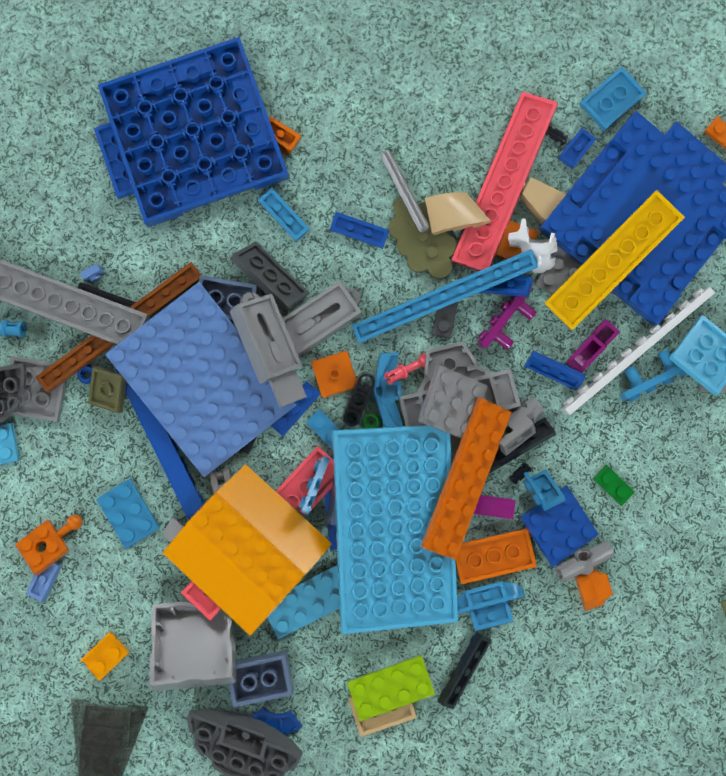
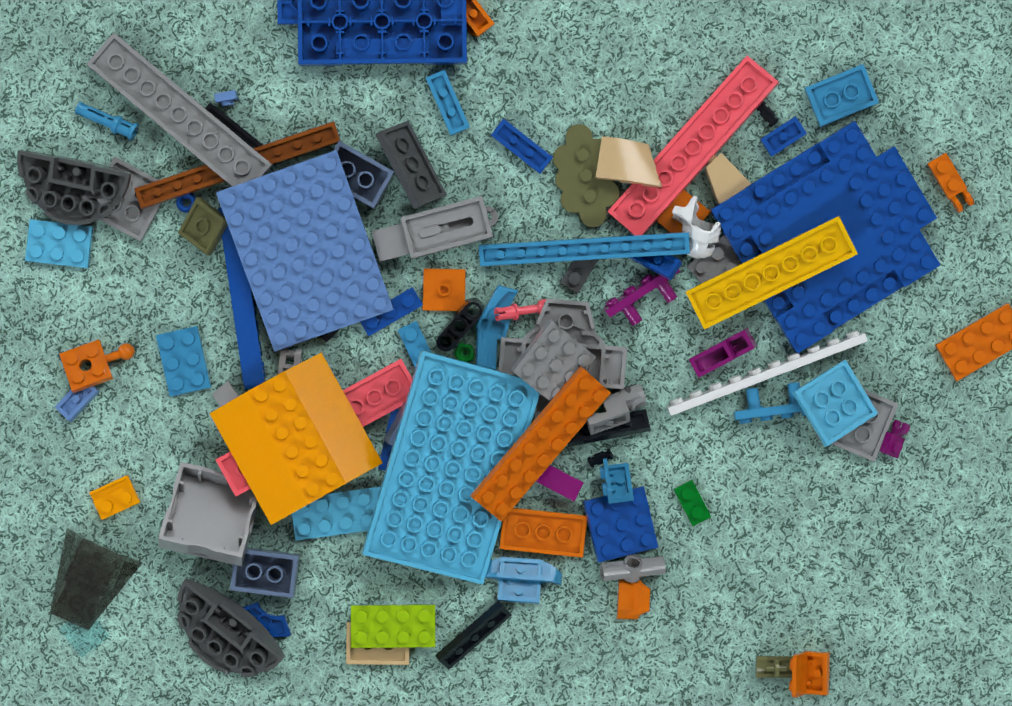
camera: 10 degrees right, 5 degrees up
(269, 346) = (385, 241): light grey piece -> none
(313, 485) = (384, 397): dark azure wing -> none
(405, 191) = (583, 121): light grey axle -> none
(554, 370) = (673, 364): blue plate -> none

